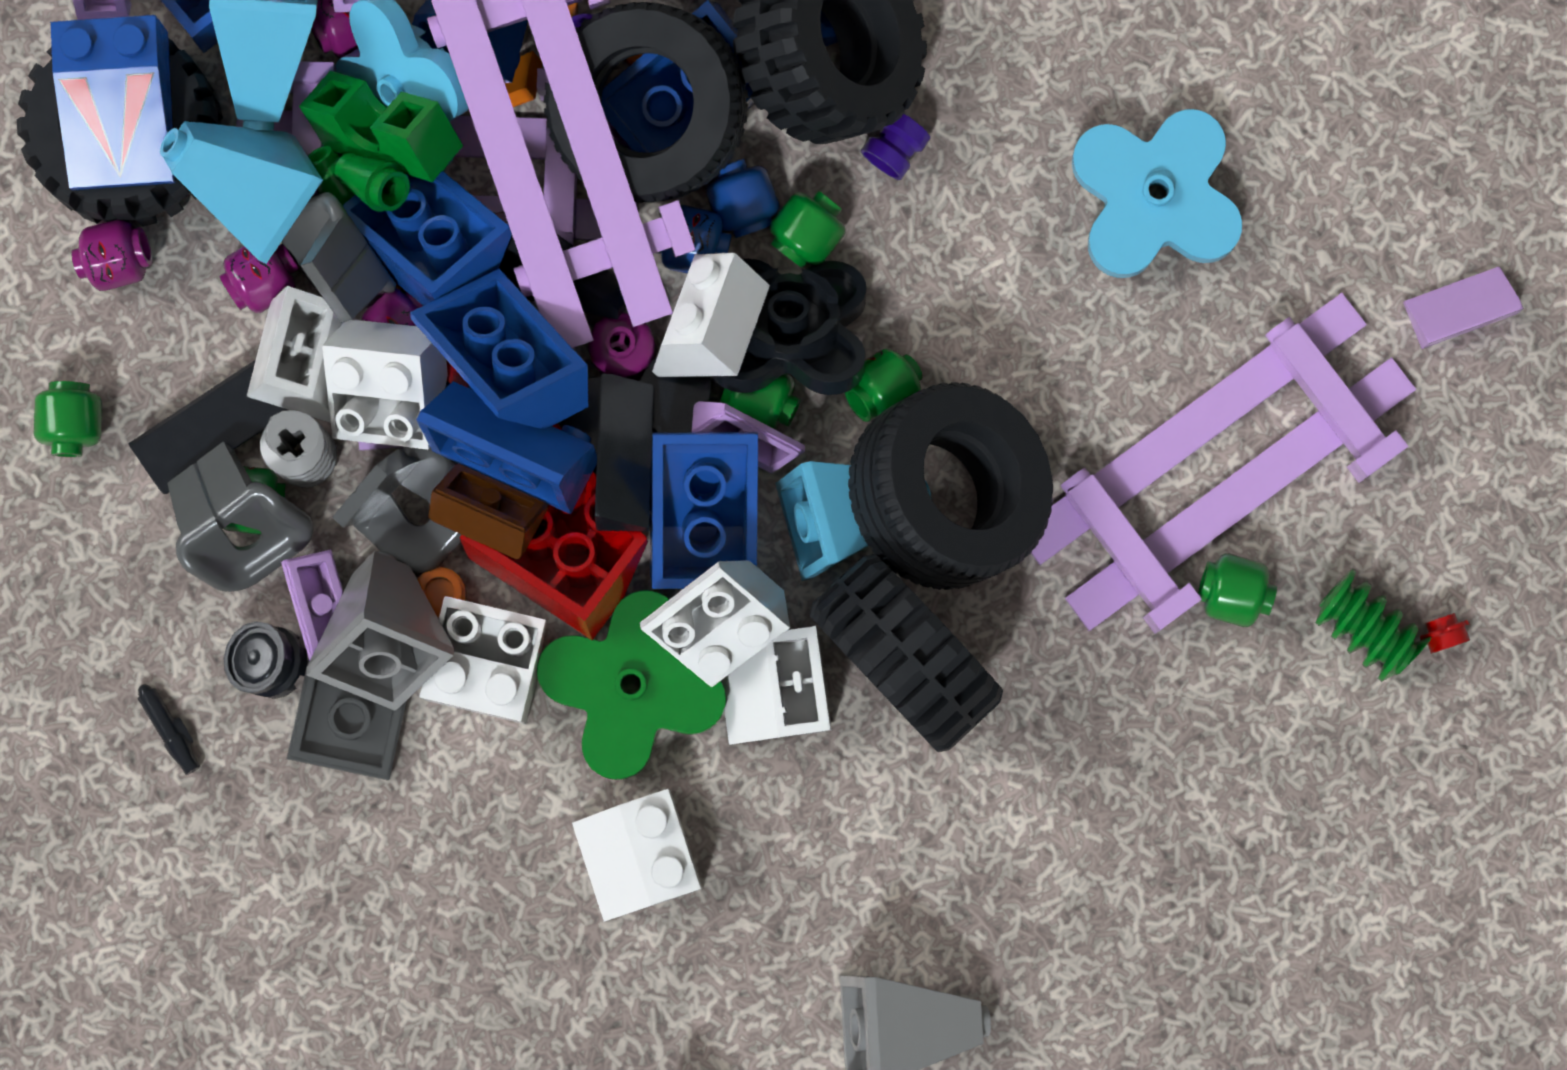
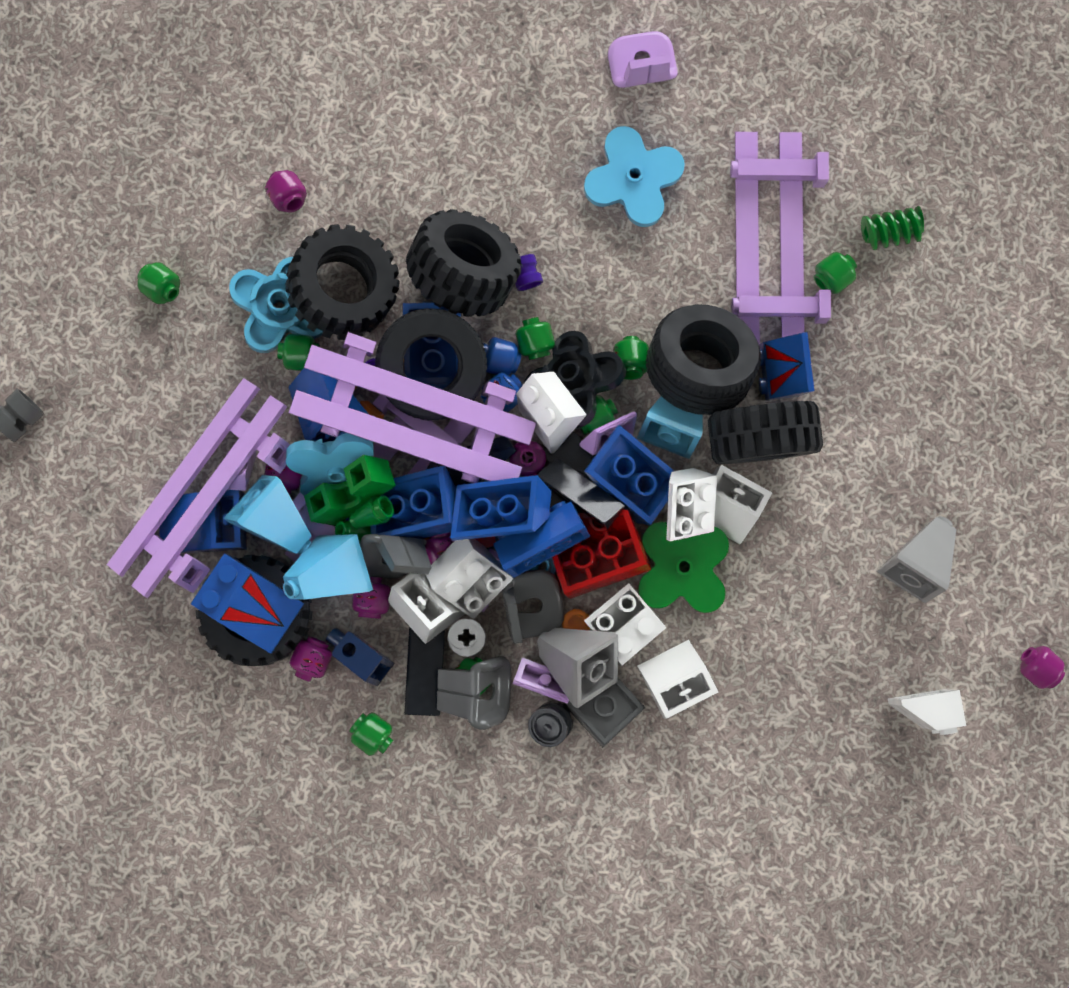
camera: 60 degrees left, 0 degrees up
(163, 321) = (365, 663): none -> dark blue torso
(171, 730) = (549, 790): black piece -> none
(461, 794) = (677, 679): none -> white slope
(486, 510) = (561, 572): reddish brown slope -> none
(637, 855) = (761, 620): white slope -> none
(1028, 613) = (786, 367): none -> blue slope
(1350, 113) = (631, 72): none -> lavender piece
(1446, 633) = (918, 197): red plate -> none
(1462, 307) = (780, 85): lavender slope -> none

